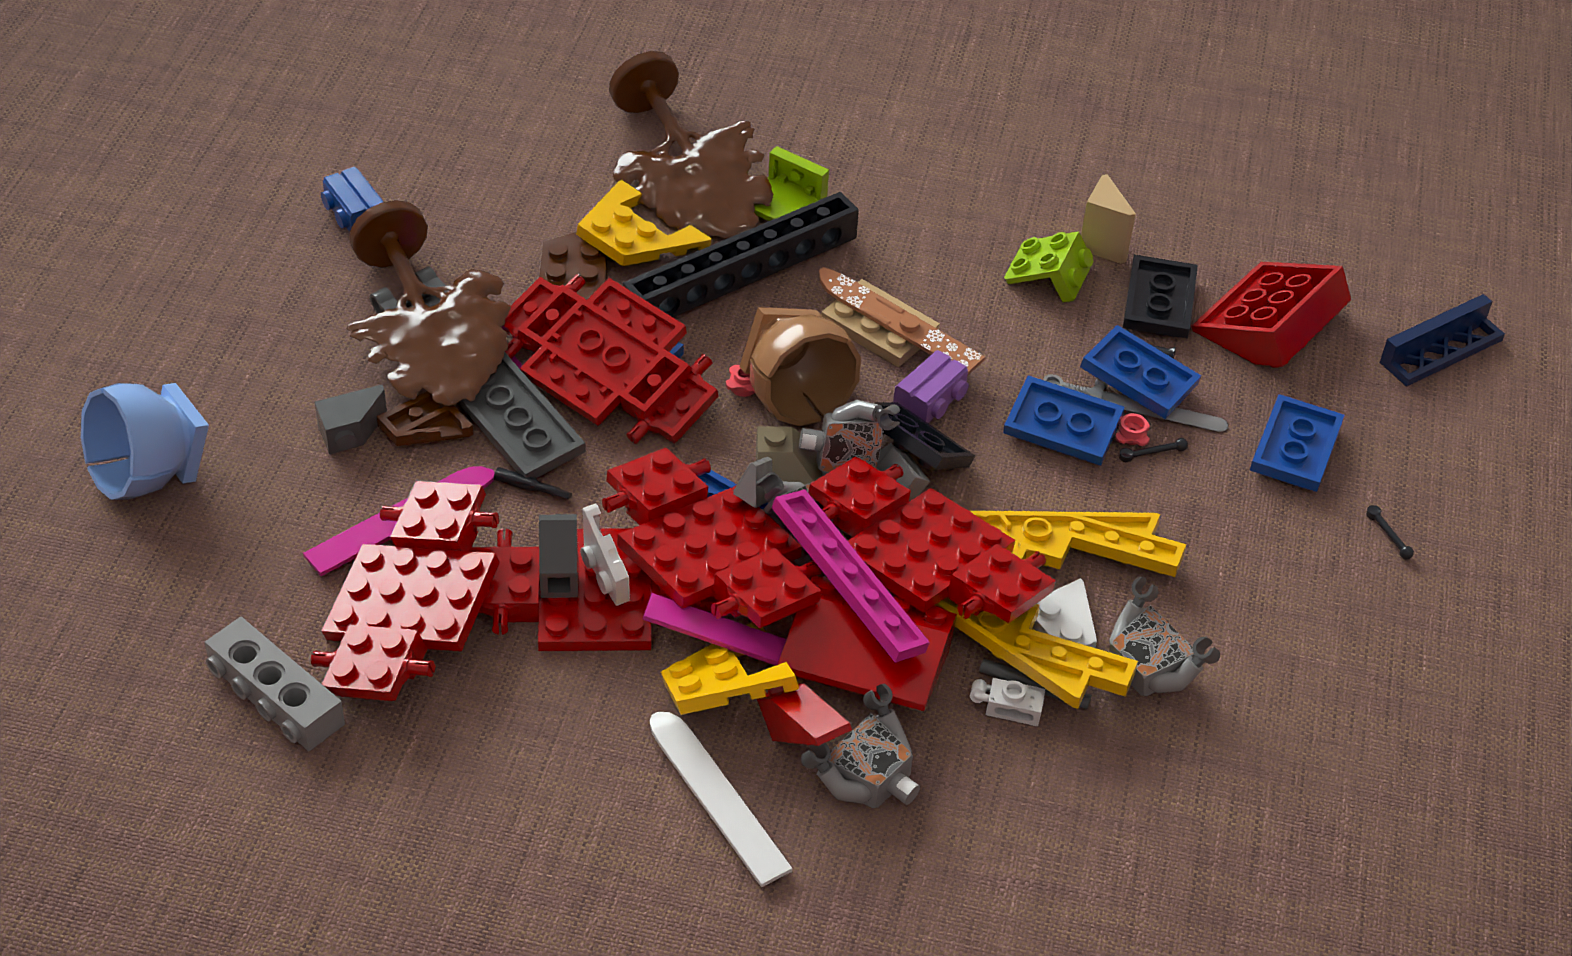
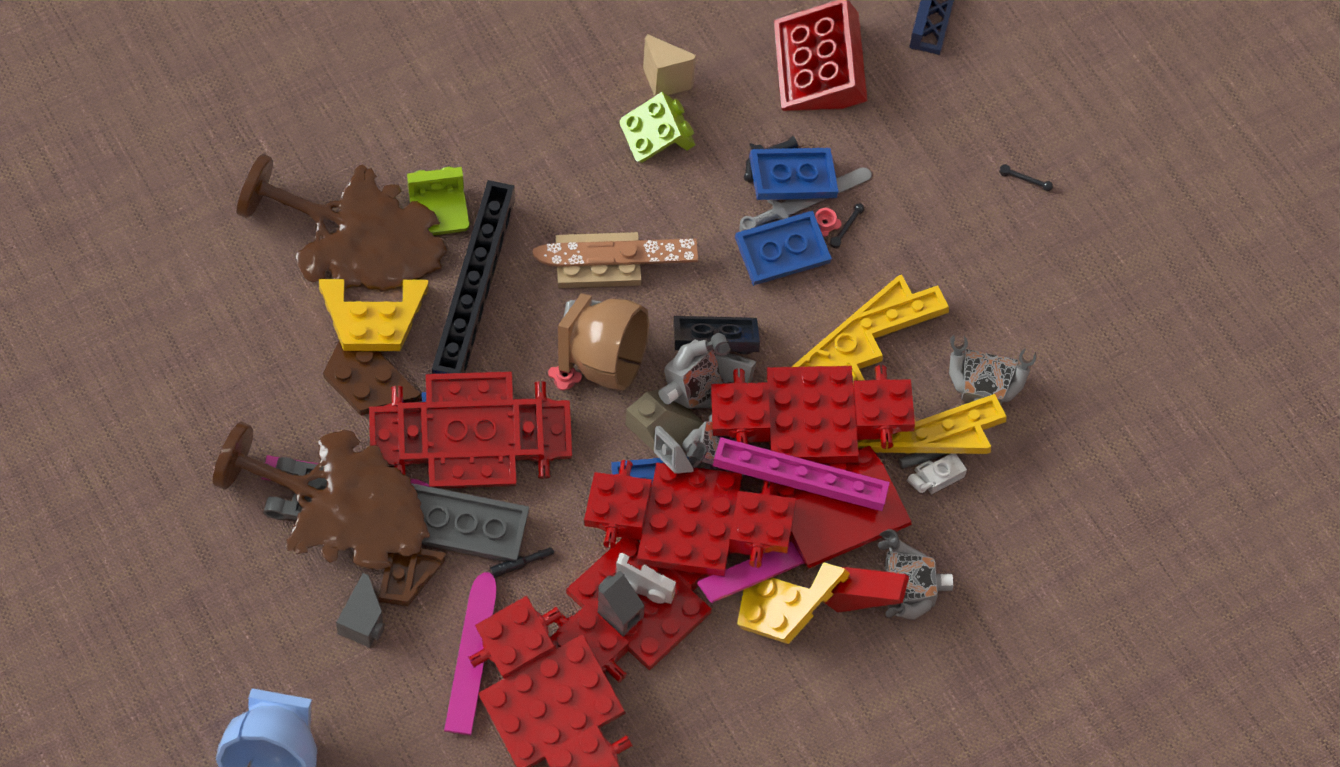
camera: 45 degrees left, 15 degrees up
(348, 196) = (162, 445): brick -> none
(719, 798) = (848, 674): white piece -> none
(932, 386) = (684, 287): medium lavender brick -> none
(1067, 615) = (927, 396): white wing -> none
(1160, 296) = (745, 100): black plate -> none
(1297, 443) = (924, 153): blue plate -> none

